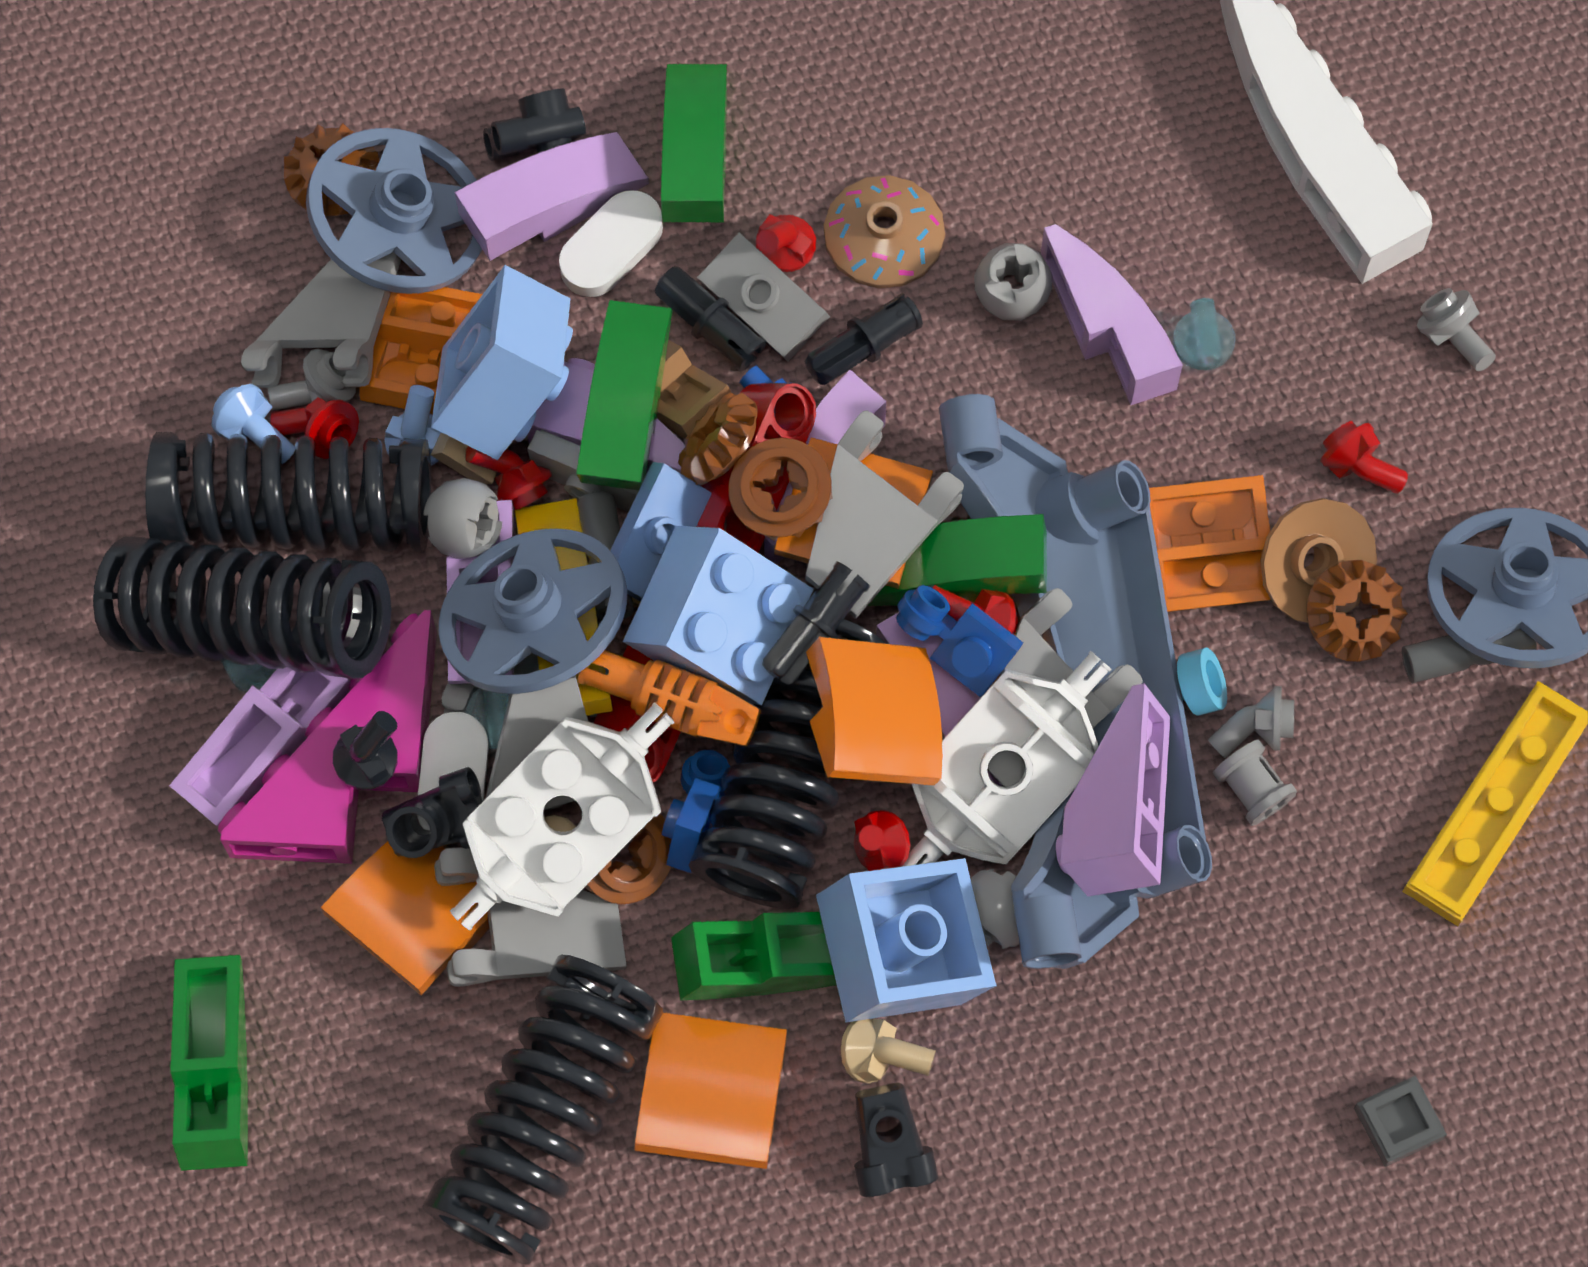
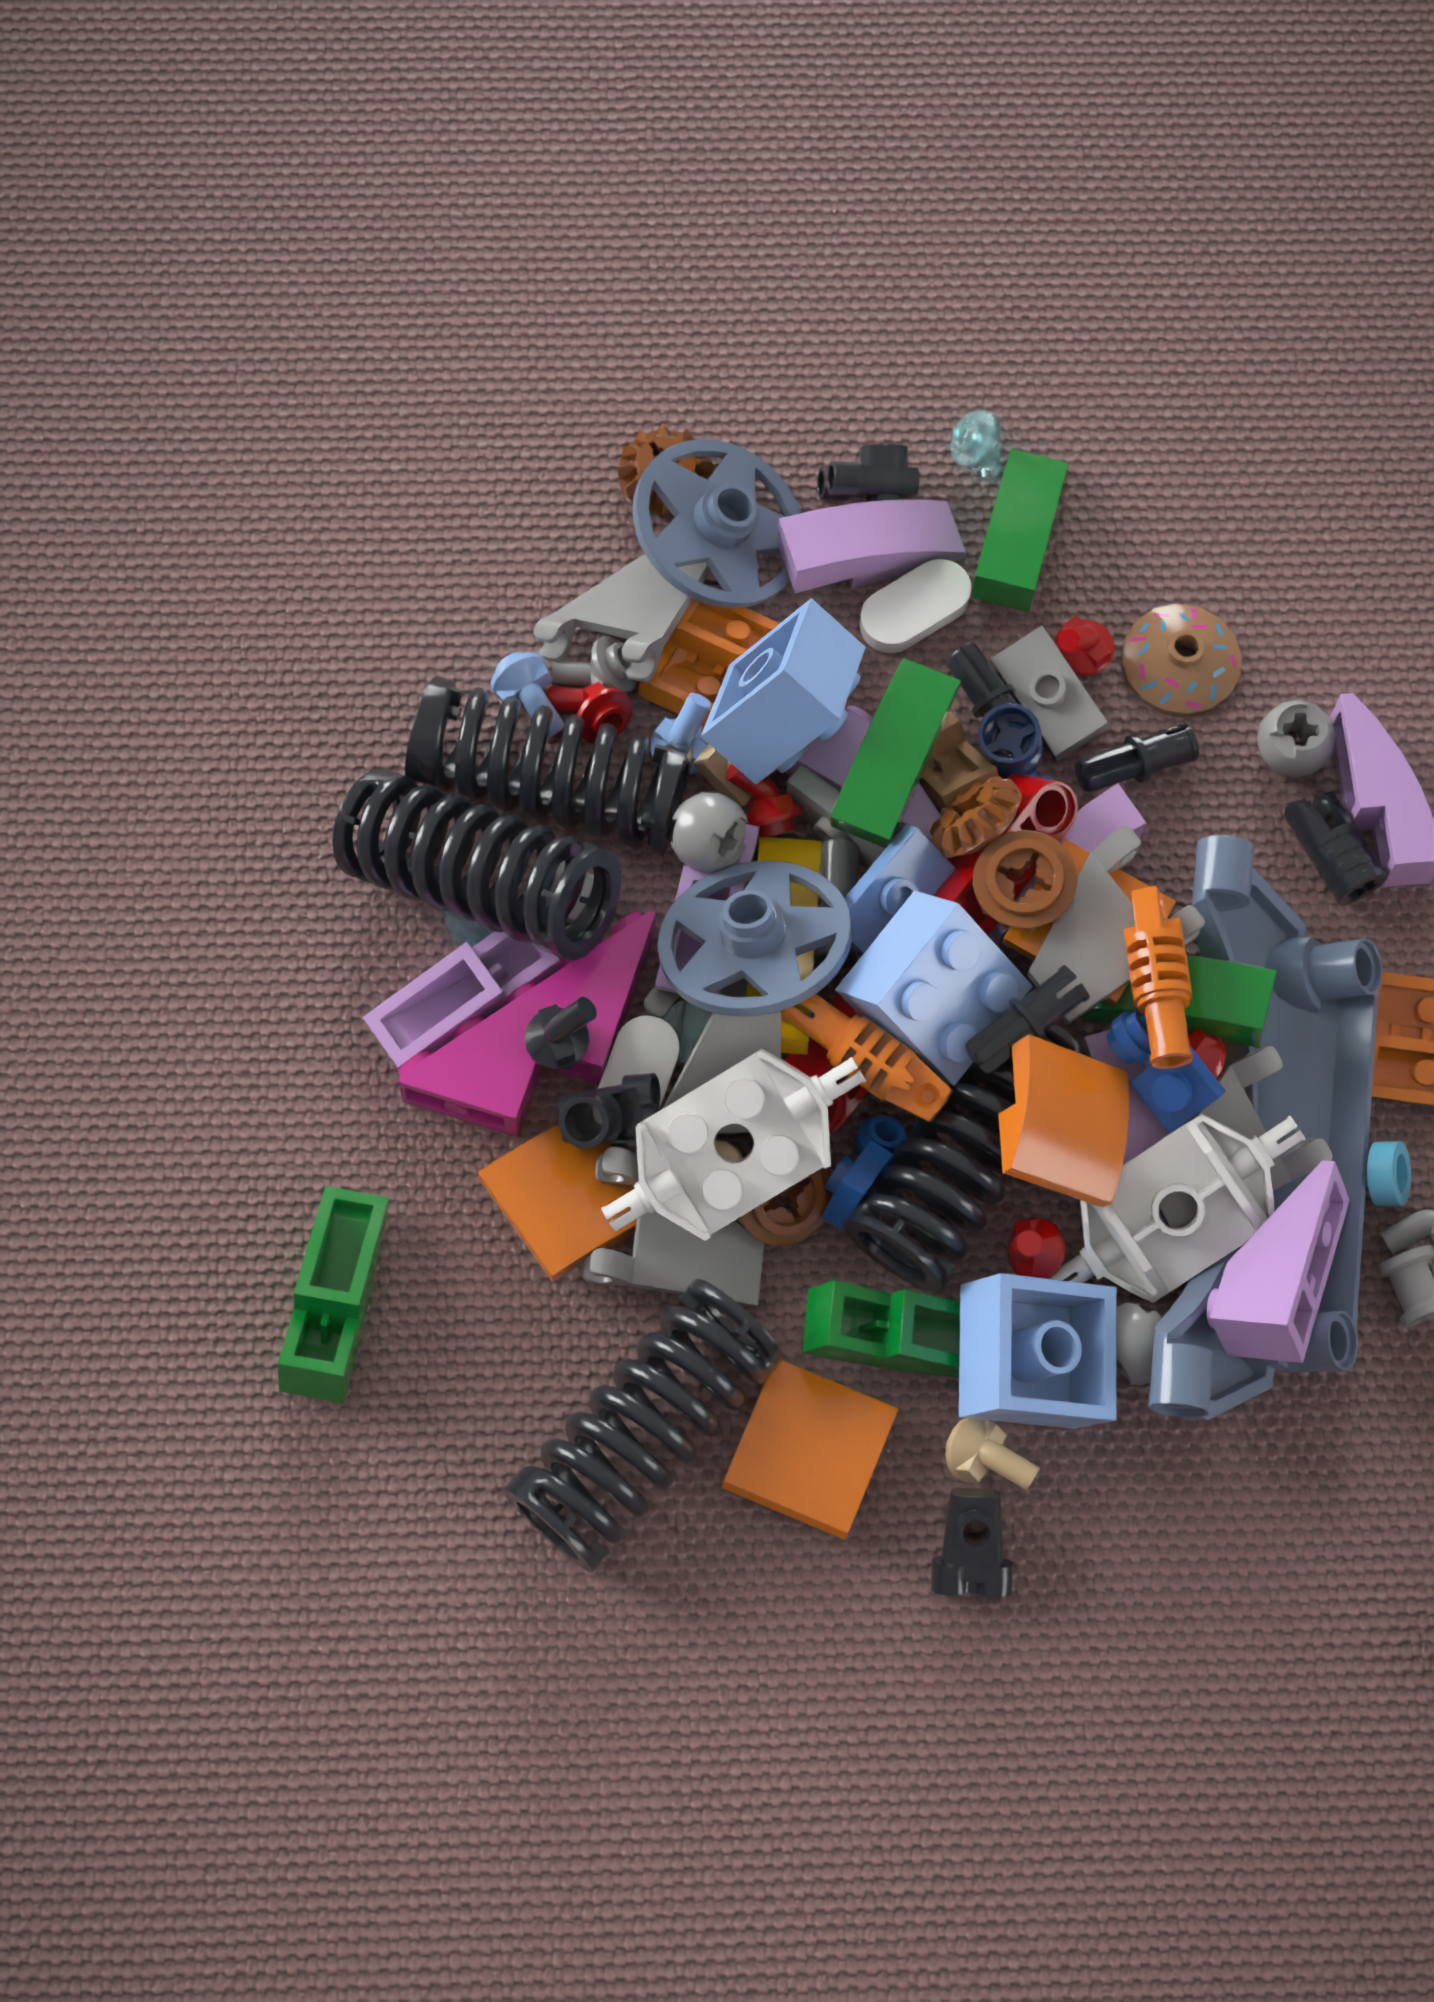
camera: 10 degrees right, 0 degrees up
(633, 67) = (977, 443): none -> clear light blue plate
(727, 345) = (1006, 729): none -> dark blue wheel
(932, 549) = (1159, 978): none -> orange hinge
(1076, 378) = (1335, 847): none -> black hinge

